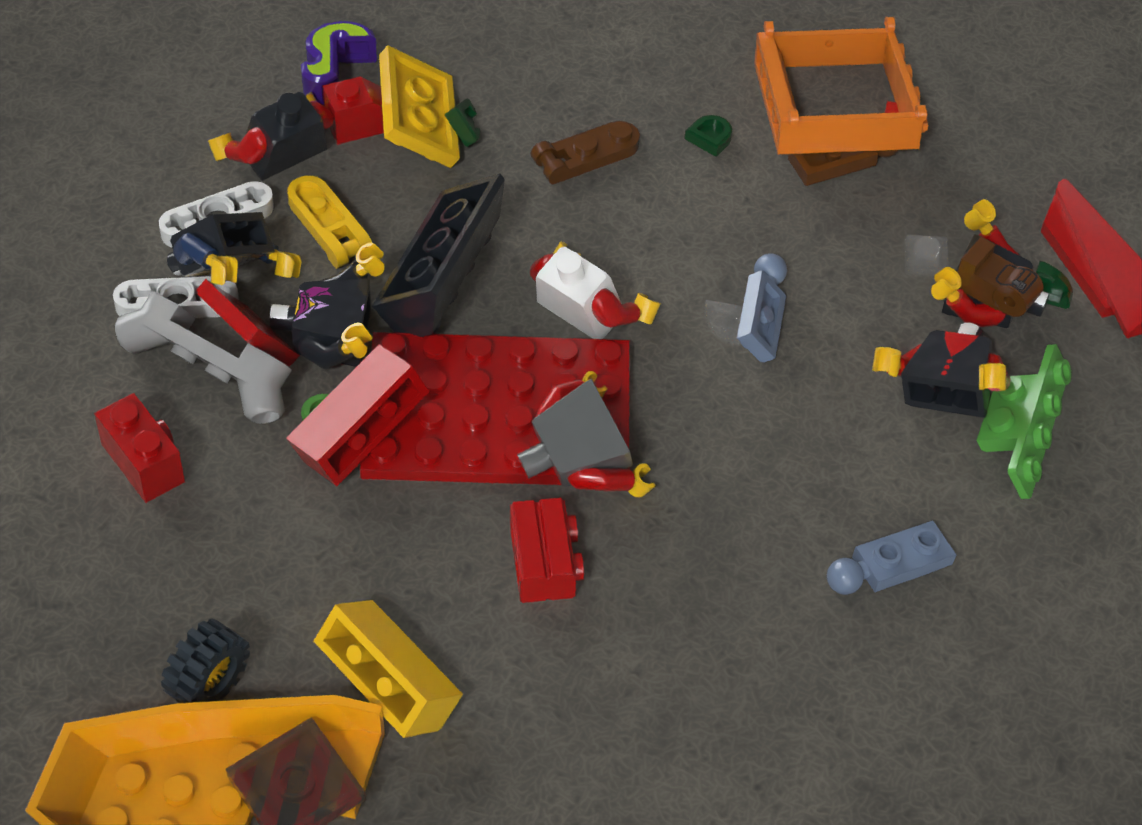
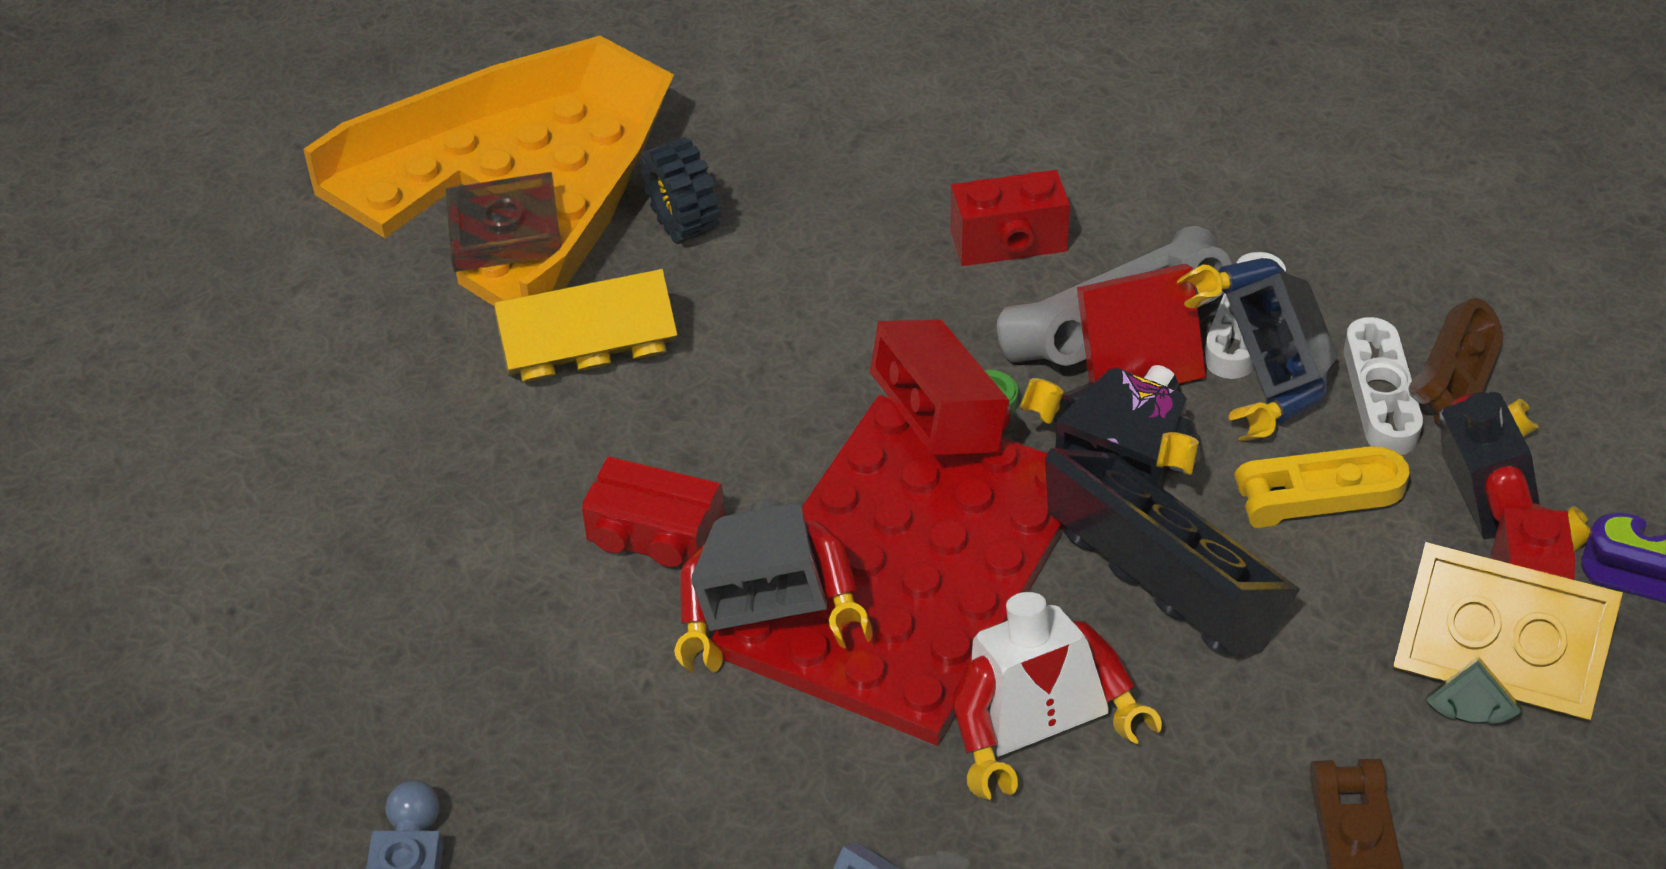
camera: 120 degrees right, 5 degrees down
(186, 176) = (1460, 356): none -> reddish brown plate

